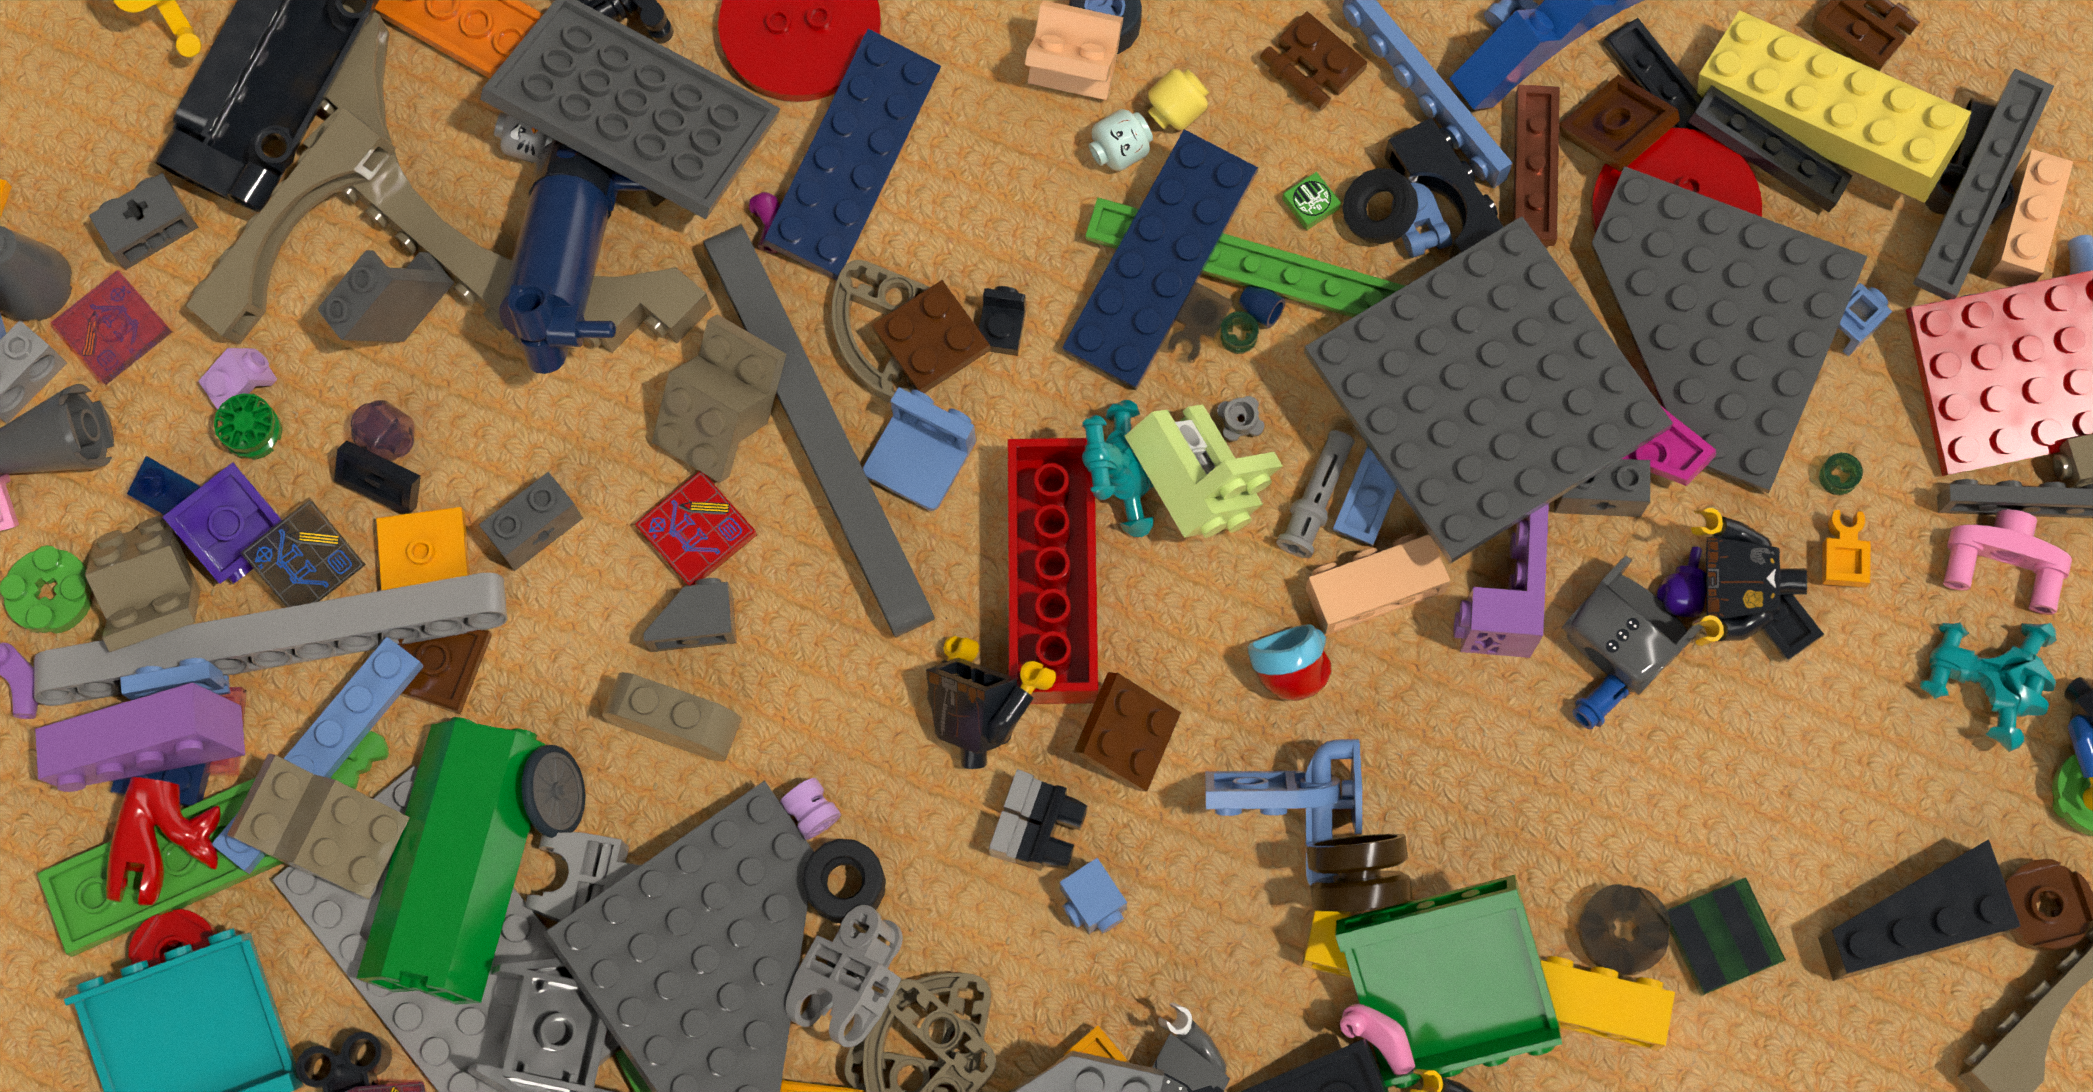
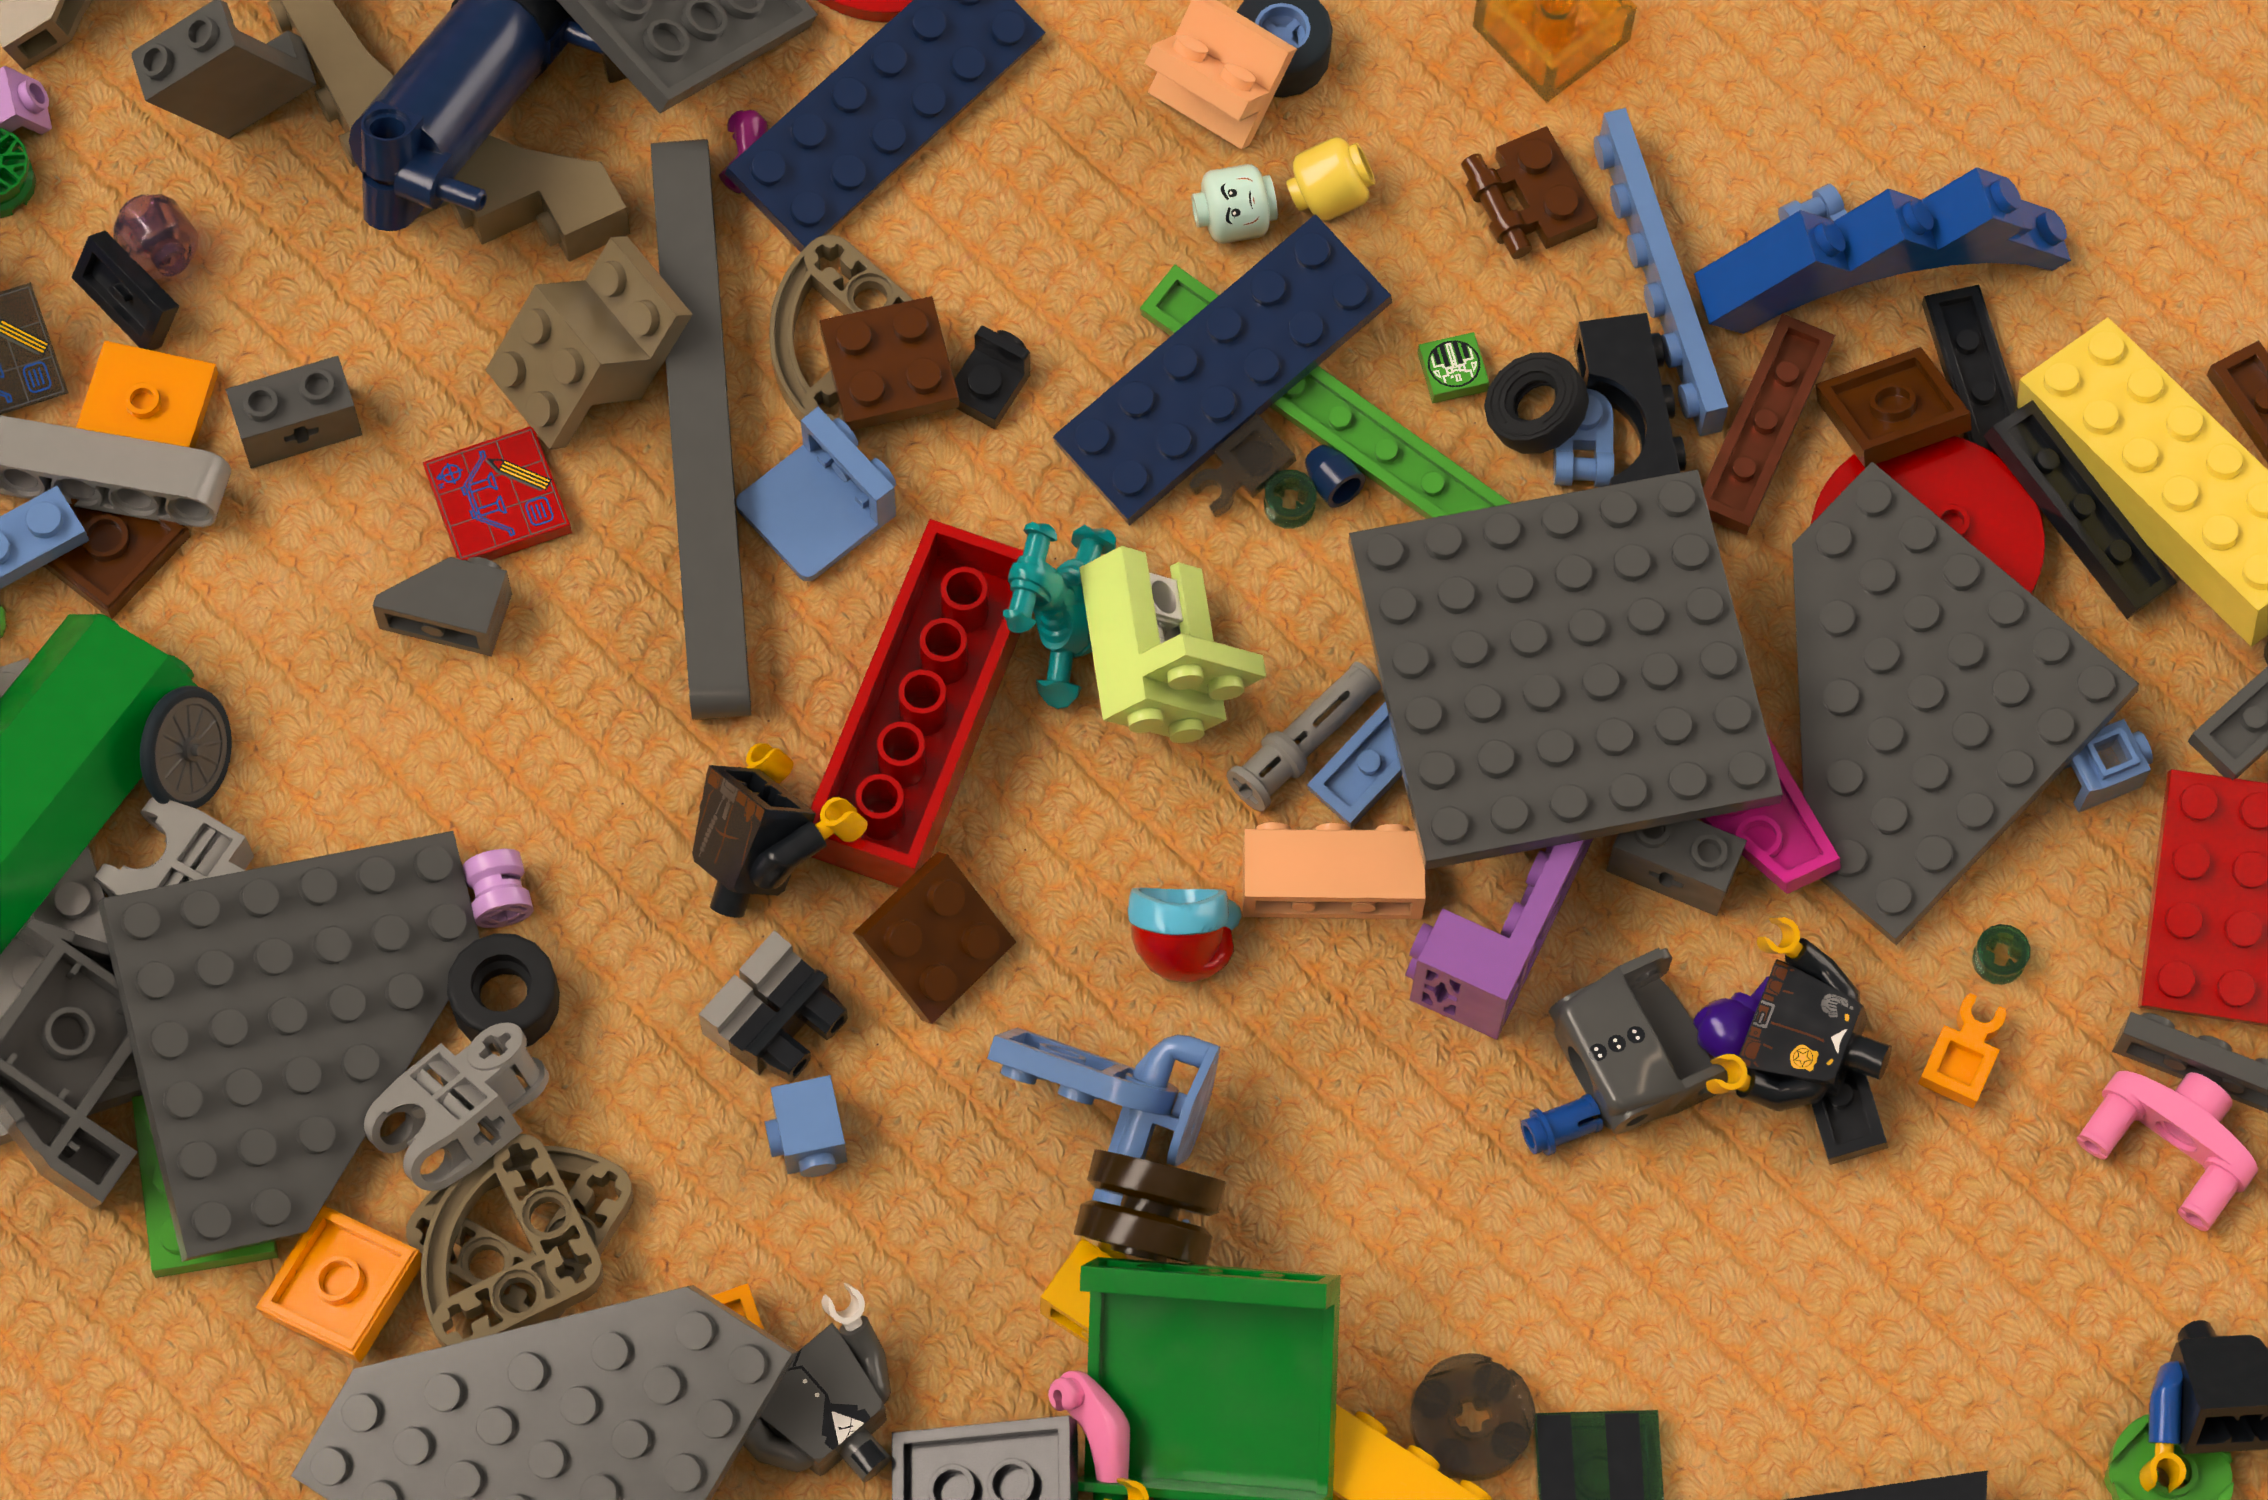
camera: 15 degrees right, 5 degrees down
(672, 716) = (370, 711): dark tan brick -> none
(1248, 409) = (1250, 591): light grey plate -> none
(2009, 680) = (2108, 1288): teal piece -> none

